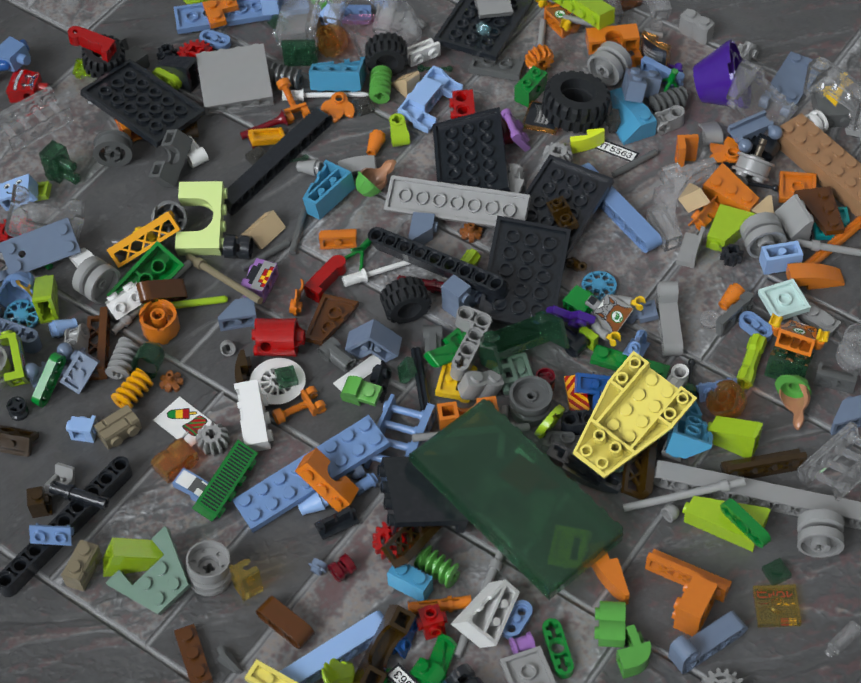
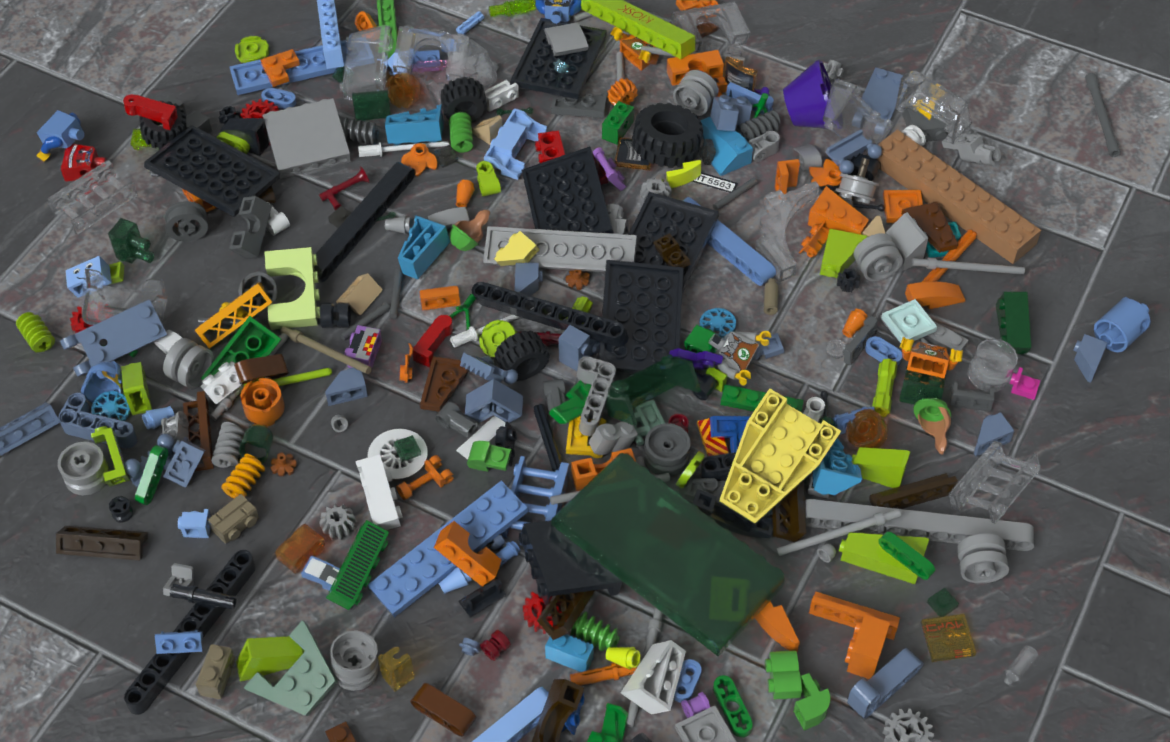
camera: 10 degrees left, 0 degrees up
(39, 502) = (159, 608): dark brown brick -> none
(182, 420) = (301, 505): white sticker -> none
(241, 367) = (358, 443): dark brown slope -> none
(265, 136) = (347, 195): light orange tile -> none
(277, 337) = (392, 407): red cylinder -> none
(284, 84) = (360, 140): orange bar -> none
(371, 309) = (485, 368): none -> sand blue gear
(382, 276) = (494, 334): none -> lime tile
(406, 370) = (532, 429): clear green plate -> none
(415, 200) = (518, 250): none -> light yellow slope
(431, 621) = (598, 692): red brick -> none
(461, 591) = (624, 656): none -> neon yellow cone
(577, 265) = (692, 304): dark brown arm -> none
(638, 344) = (767, 381): medium blue hinge -> none
(654, 265) = (771, 297): none -> dark tan cylinder
(669, 318) = (795, 354): light grey beam -> none
(690, 249) = (805, 277): light grey panel -> none
(693, 198) = (801, 224): tan slope -> none
(696, 26) = (777, 48): light grey brick -> none
(777, 256) = (894, 278): light blue brick -> none

